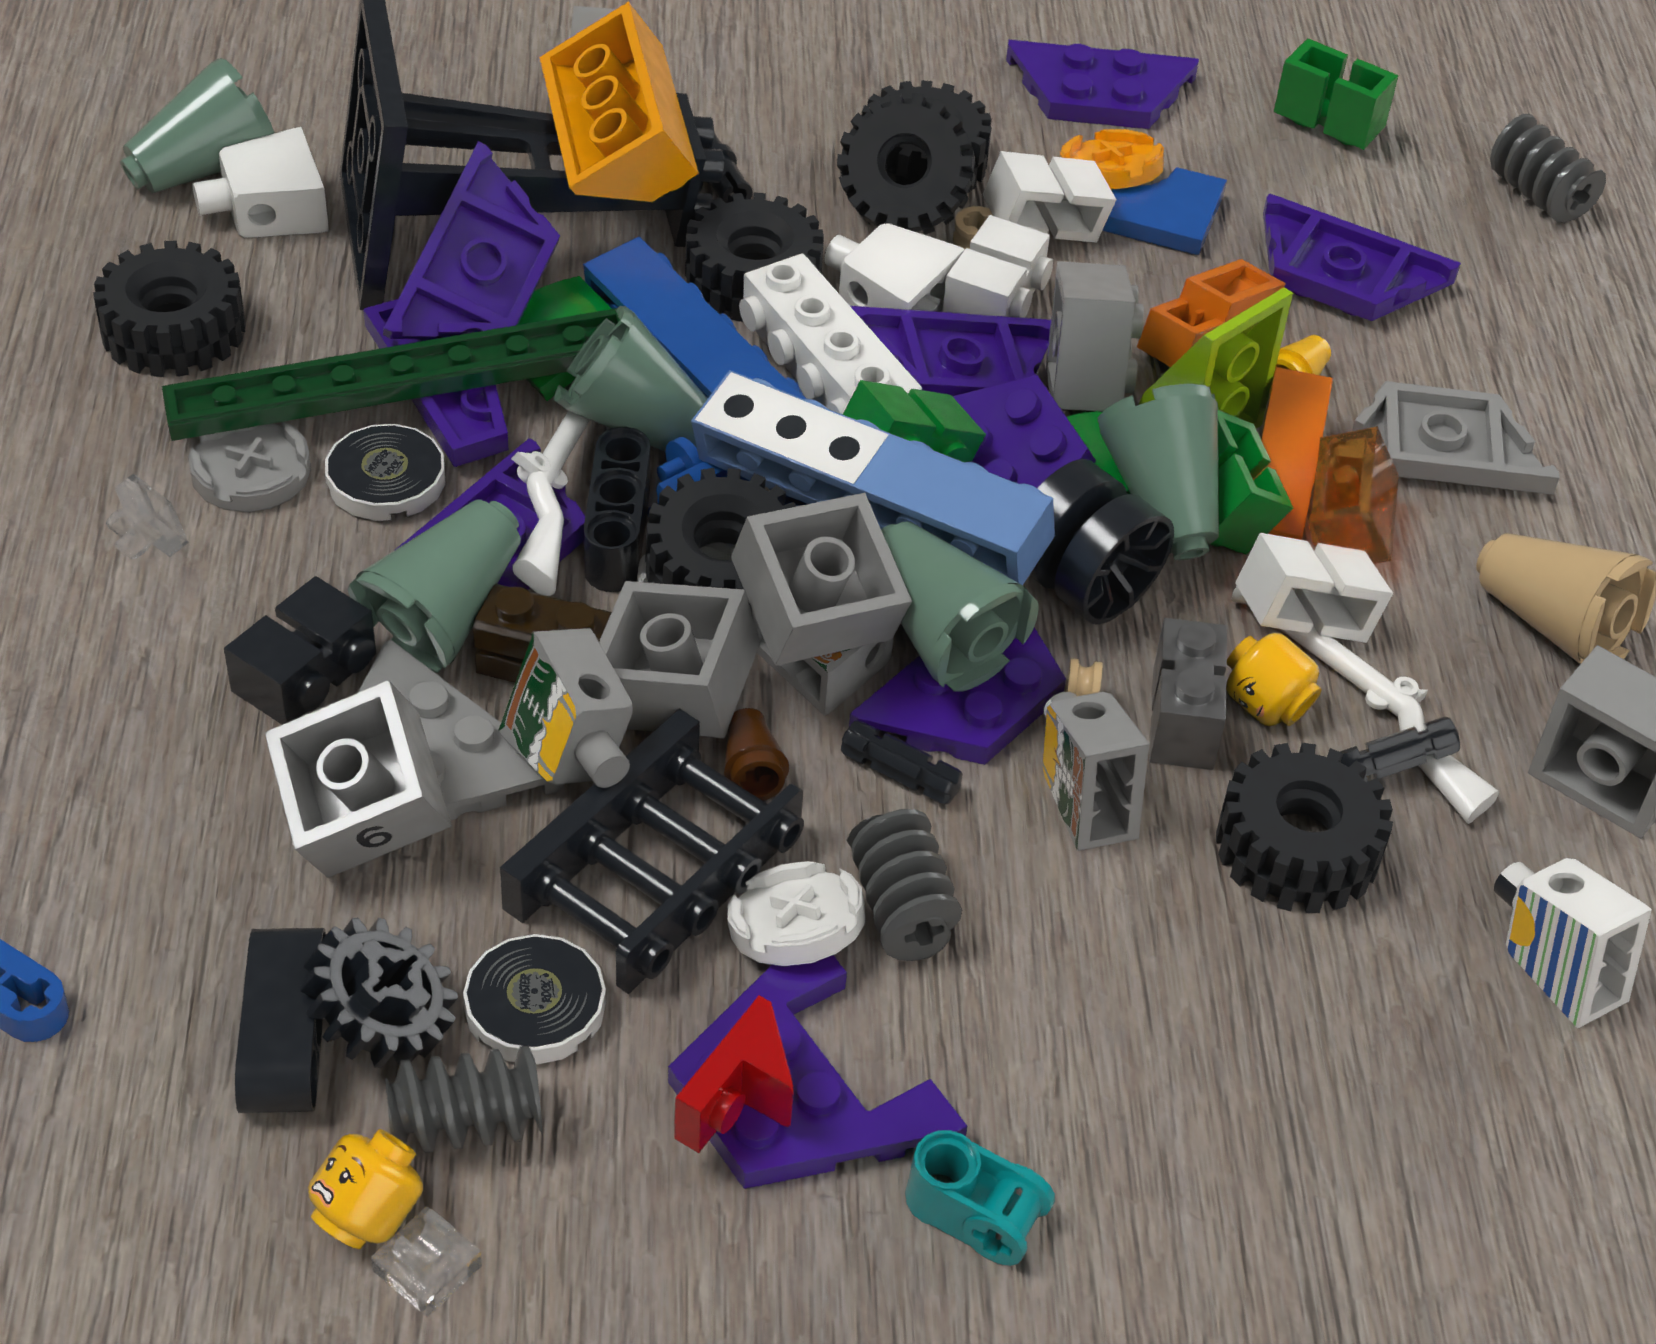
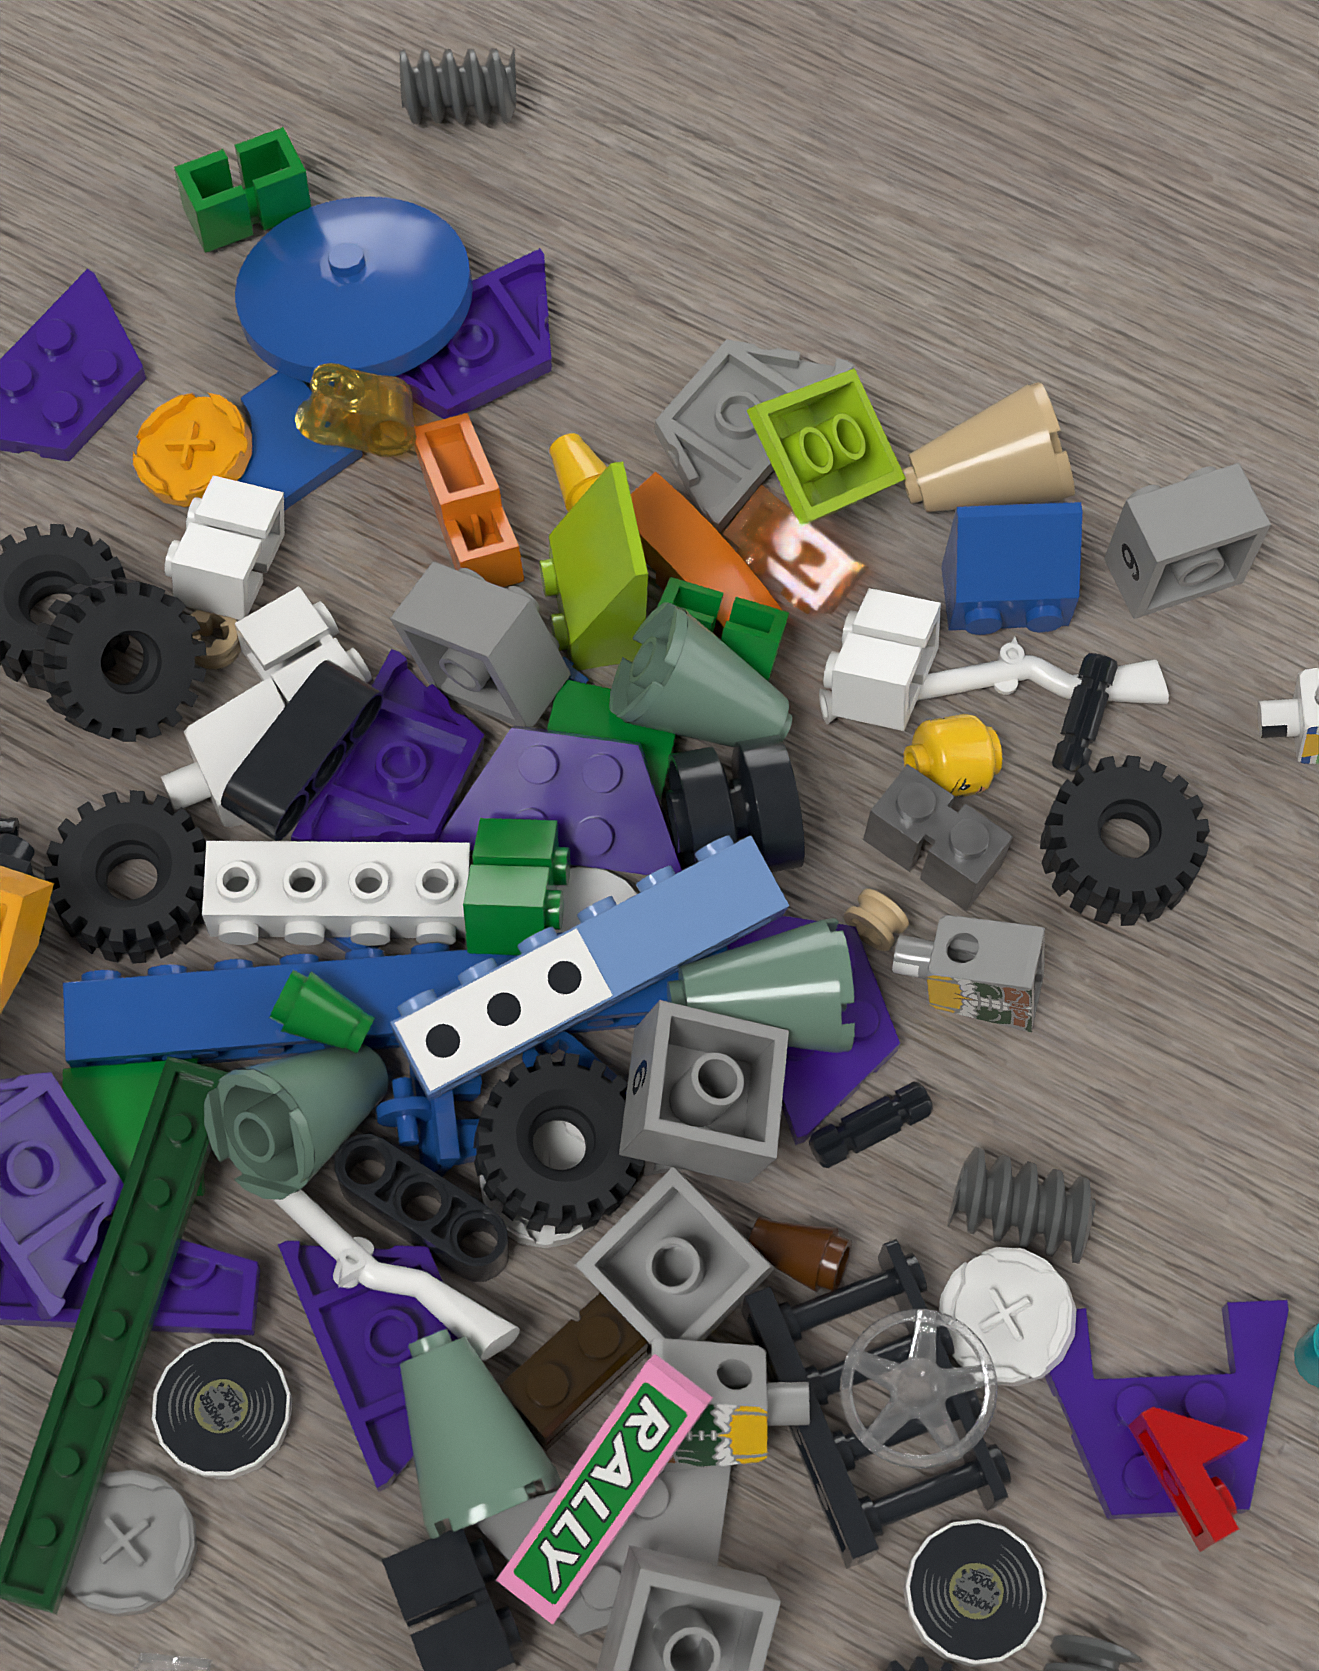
camera: 60 degrees left, 20 degrees up
(458, 649) = (604, 1488): none -> tile
(679, 849) = (919, 1389): none -> clear wheel
(714, 350) = (320, 1013): none -> green cone
(917, 271) = (302, 750): none -> black beam
(1221, 216) = (363, 409): none -> clear yellow piece
(1319, 183) = (354, 288): none -> blue dish
(1441, 446) = (826, 446): none -> lime slope
(1478, 635) = (1013, 567): none -> blue slope

